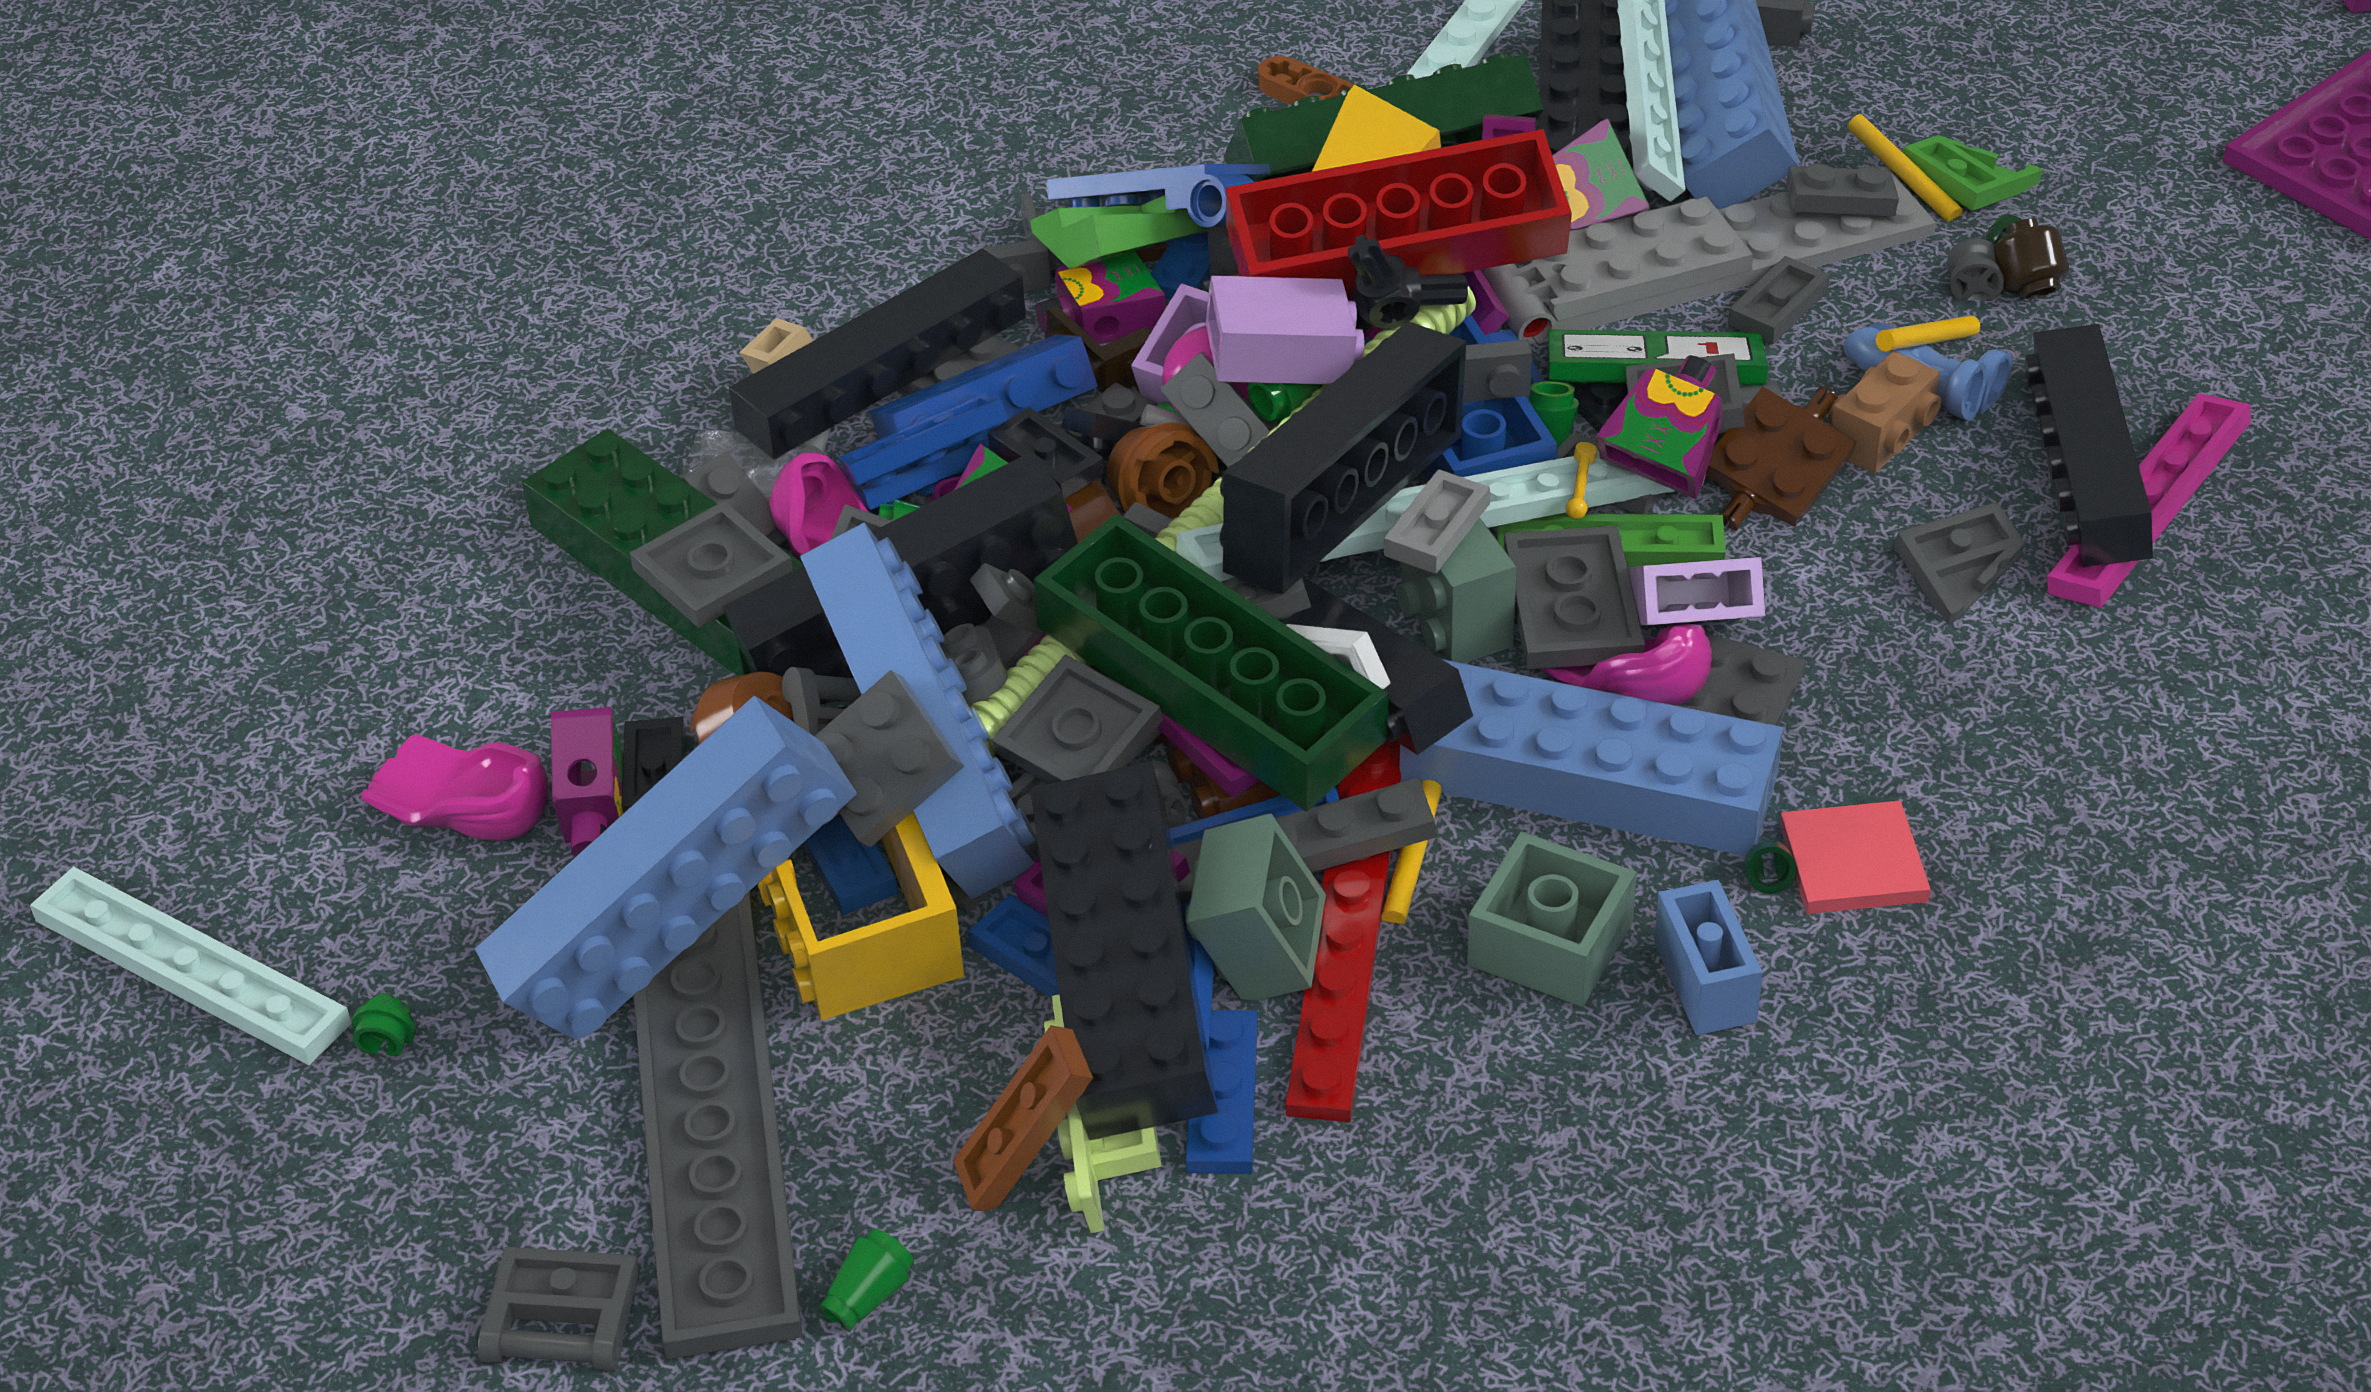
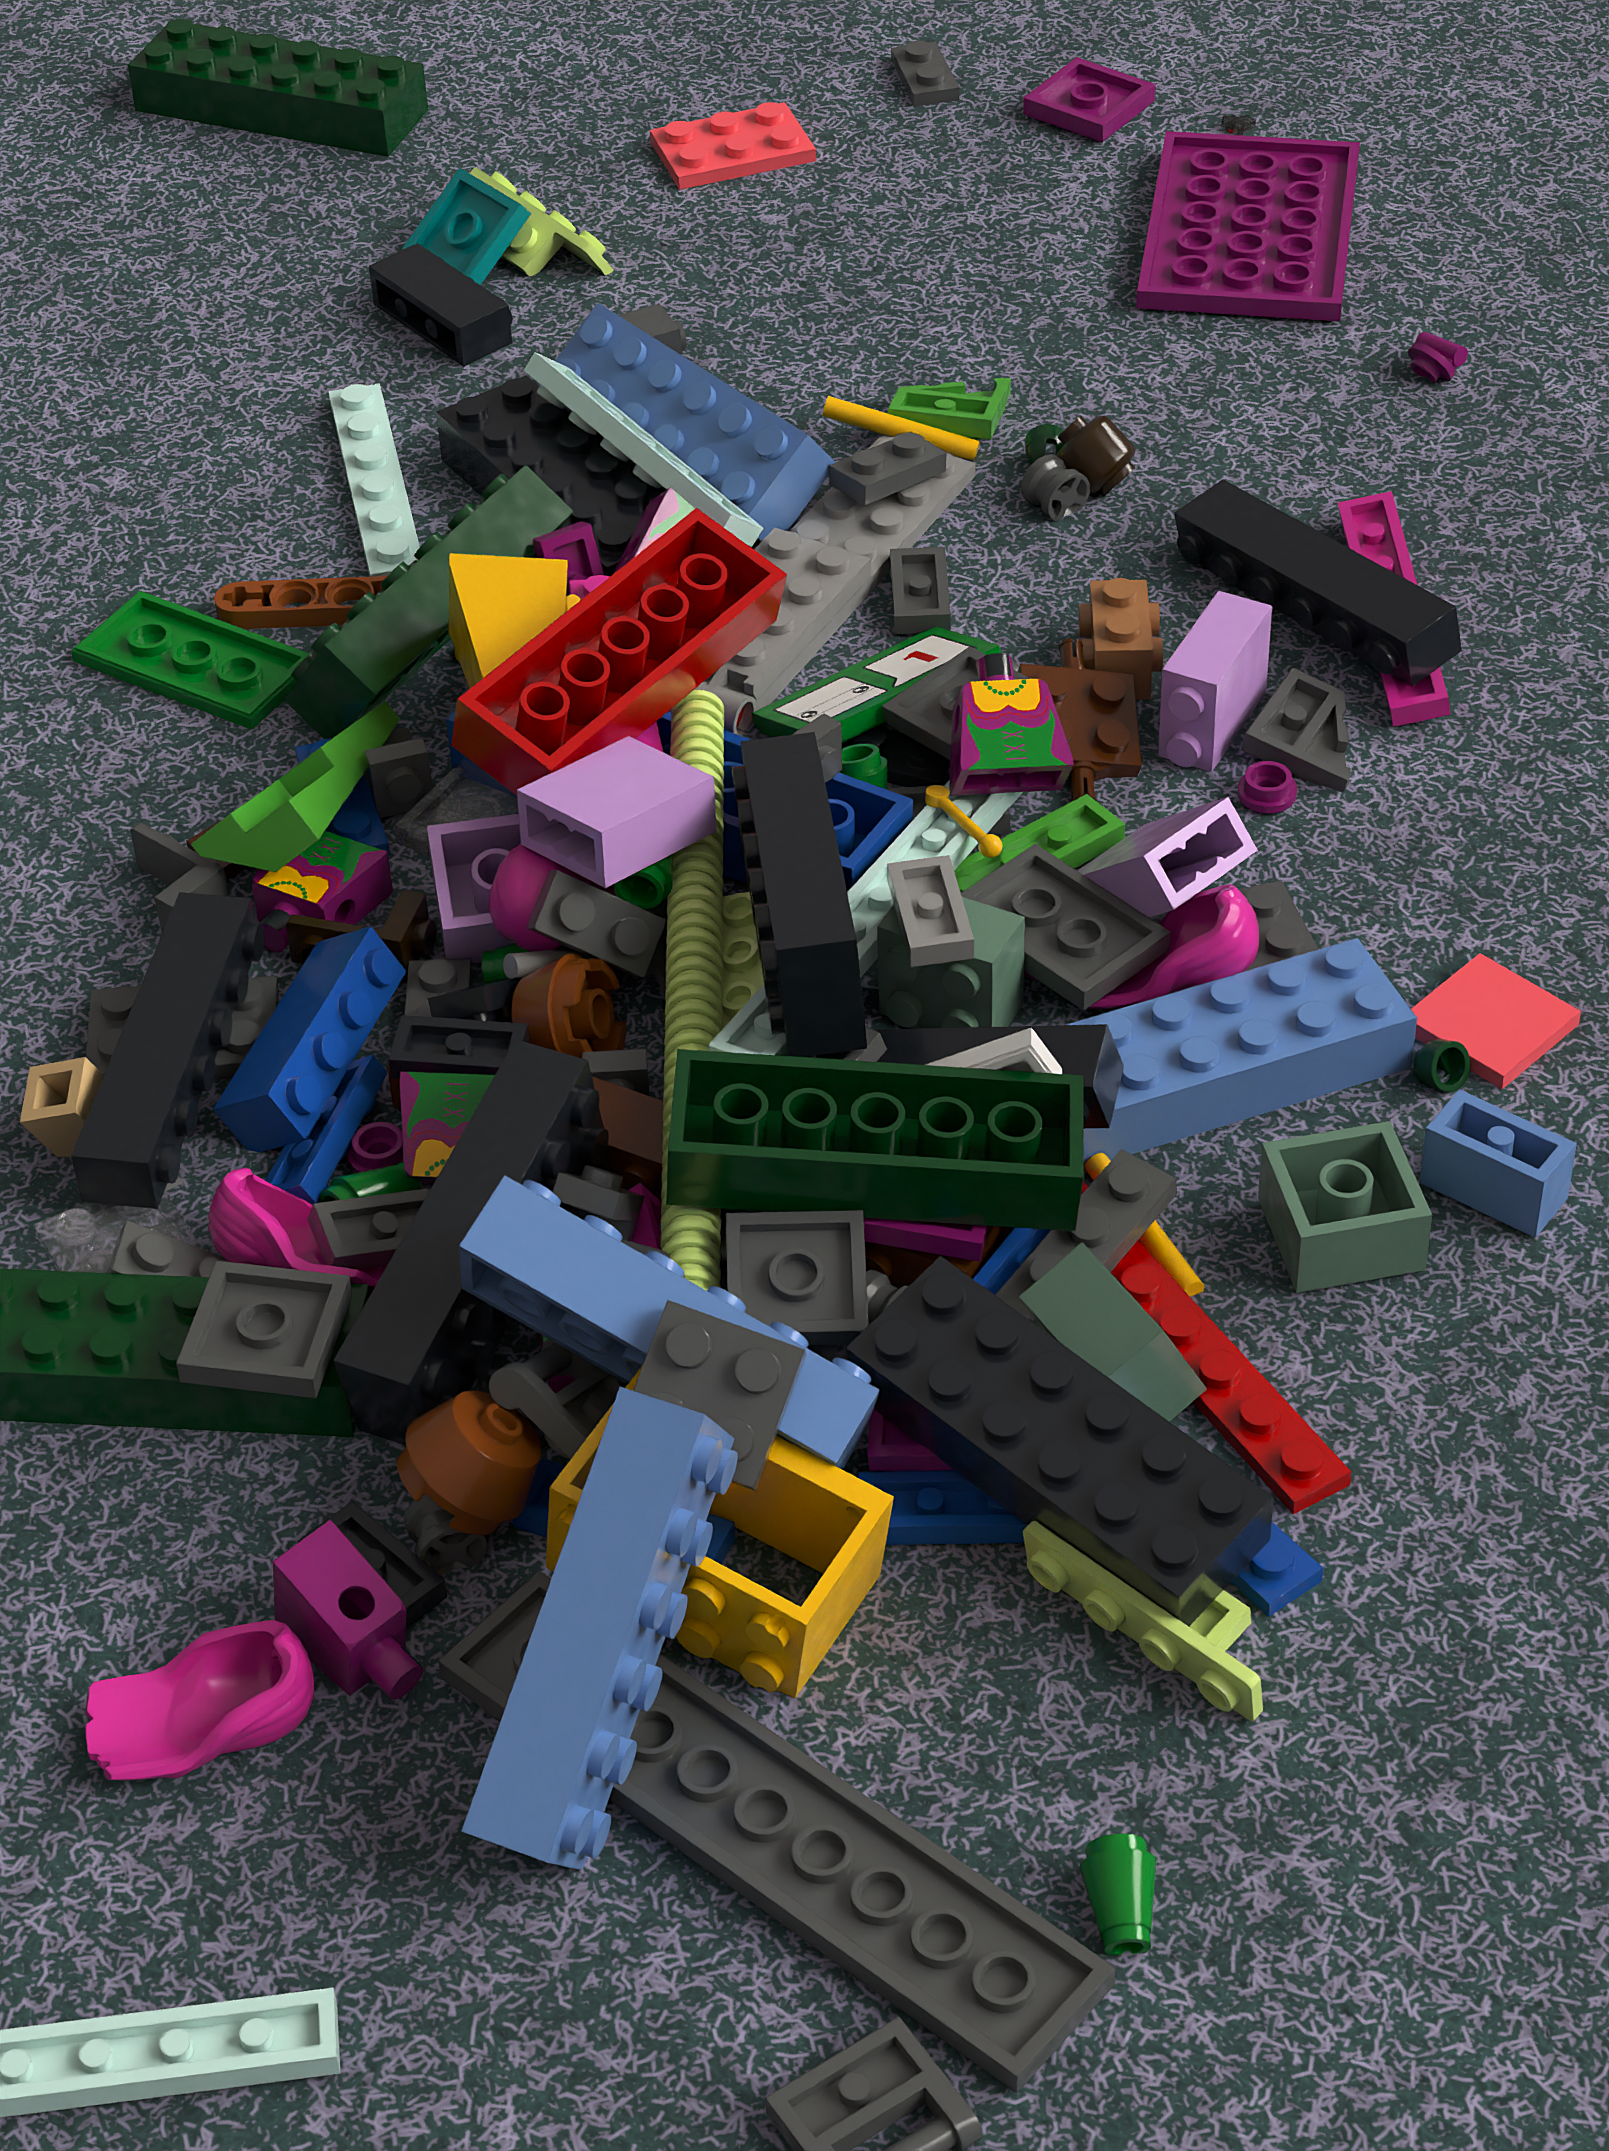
camera: 40 degrees left, 0 degrees up
(383, 1020) = (383, 1973): green plate -> none
(923, 441) = (324, 1101): blue plate -> none
(1022, 1118) = (1137, 1650): dark orange plate -> none
(1190, 187) = (341, 729): hinge -> none
(1200, 93) = (192, 659): none -> green tile
(1391, 292) = (678, 720): black bush -> none
(1880, 586) = (1267, 787): none -> magenta plate
(1906, 475) = (1214, 681): none -> lavender brick
(1927, 333) = (1086, 556): yellow bar -> none
(1963, 386) = (1061, 587): medium blue piece -> none

